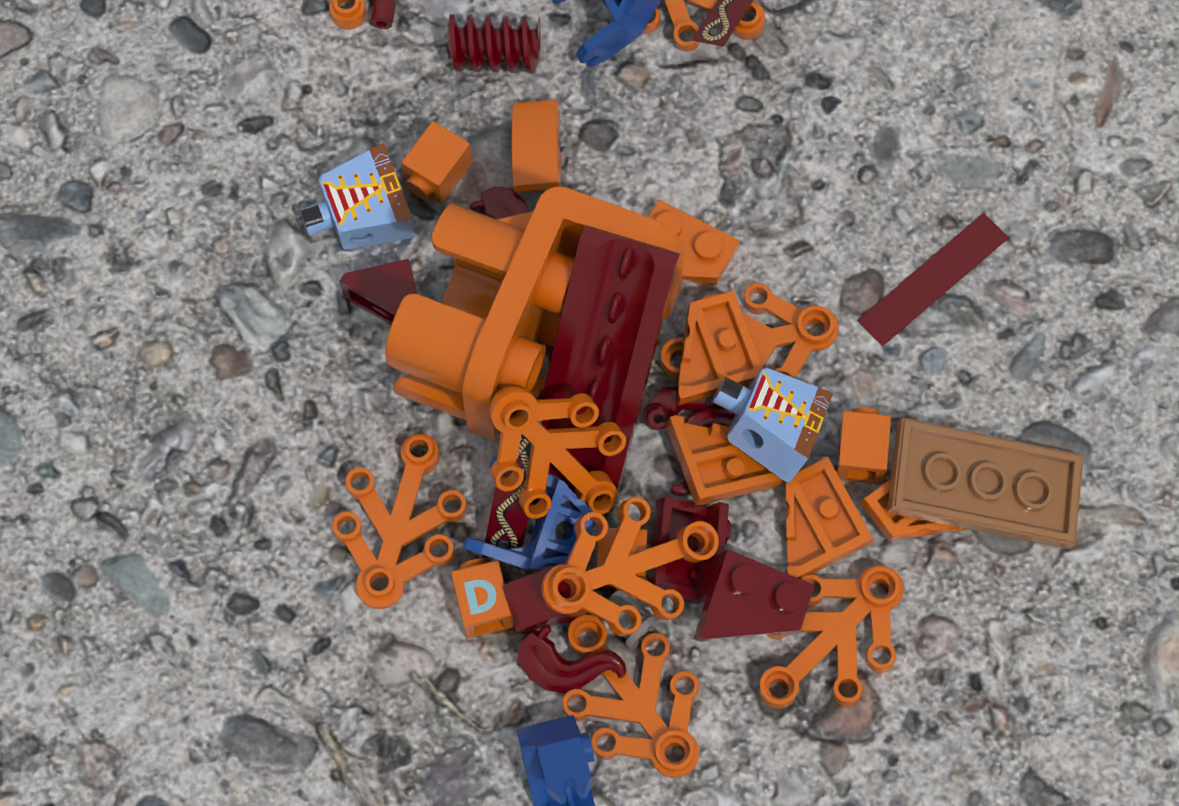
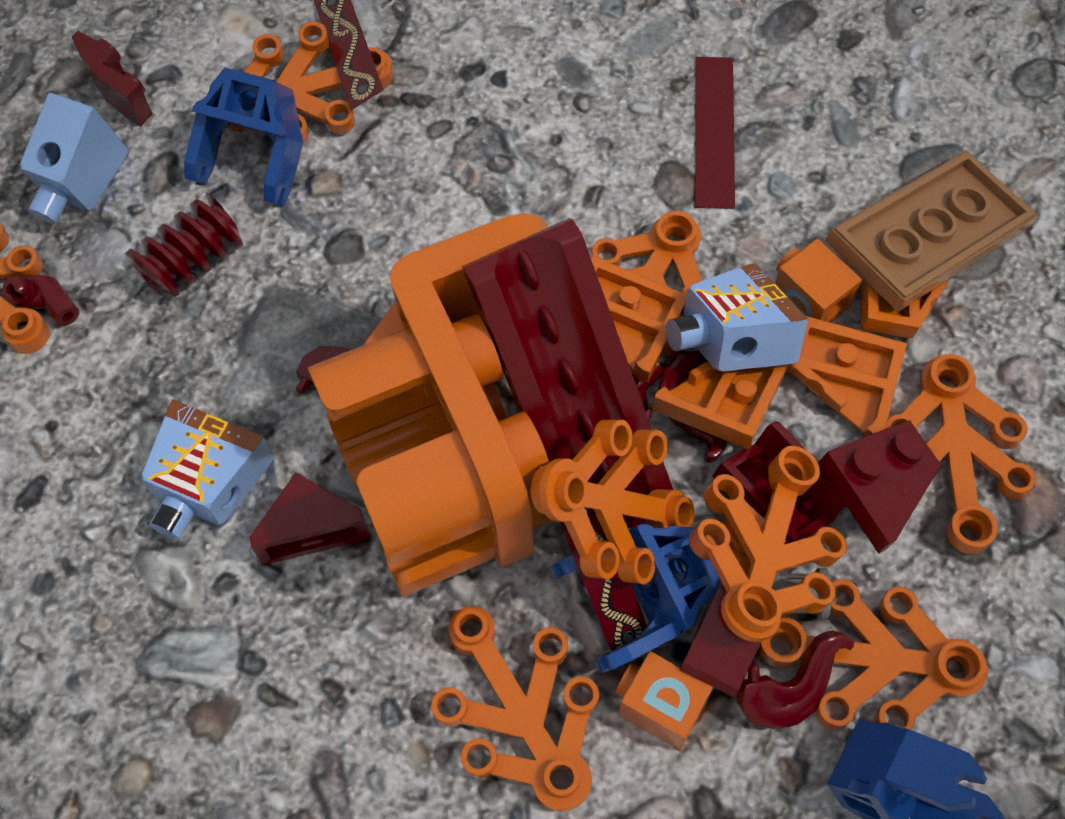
camera: 45 degrees left, 5 degrees down
(436, 163) = (234, 379): orange brick -> none
(536, 145) = (306, 294): orange slope -> none

